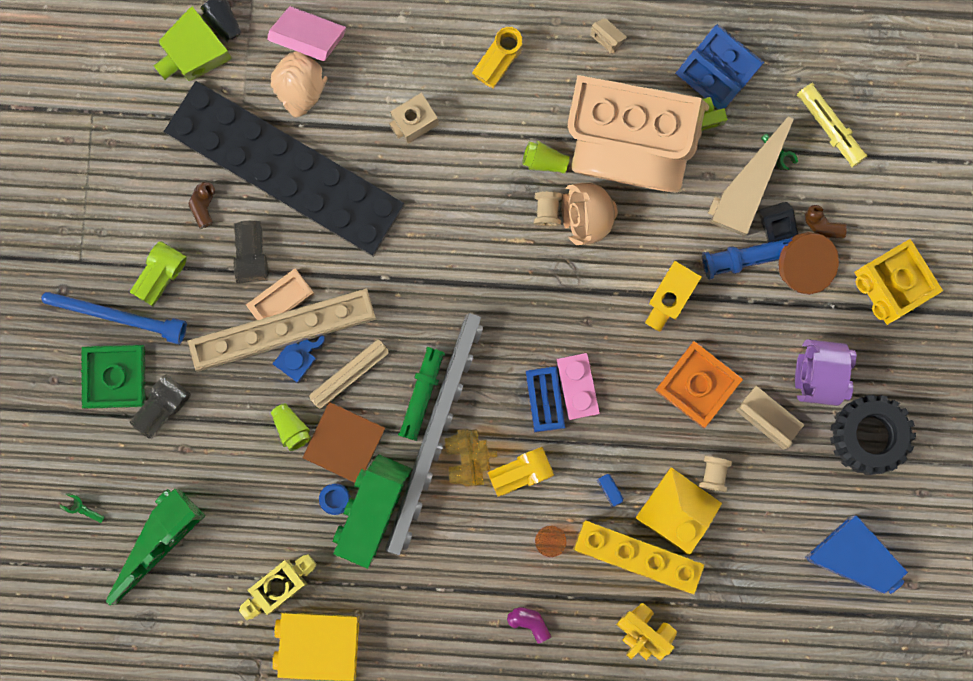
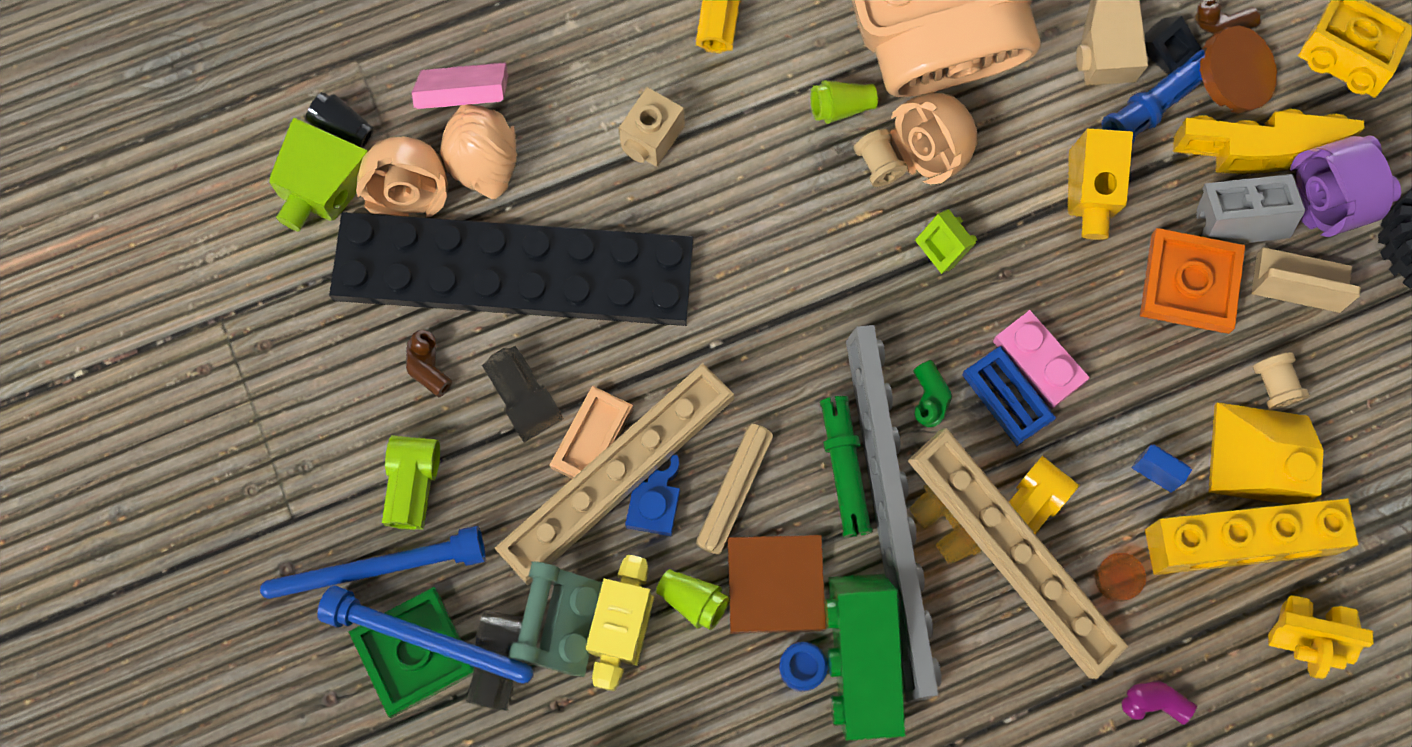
camera: 30 degrees left, 10 degrees down
(83, 331) = (341, 608): none -> blue piece
(210, 405) = (566, 622): none -> sand green plate
(240, 420) = (620, 622): none -> light yellow piece
(241, 77) = (402, 178): none -> light nougat cylinder
(490, 497) = (1018, 553): none -> tan tile
(499, 378) = (936, 395): none -> green arm
(558, 283) = (945, 241): none -> lime tile
(760, 358) = (1251, 209): none -> light grey hinge
(811, 324) = (1254, 148): none -> yellow slope

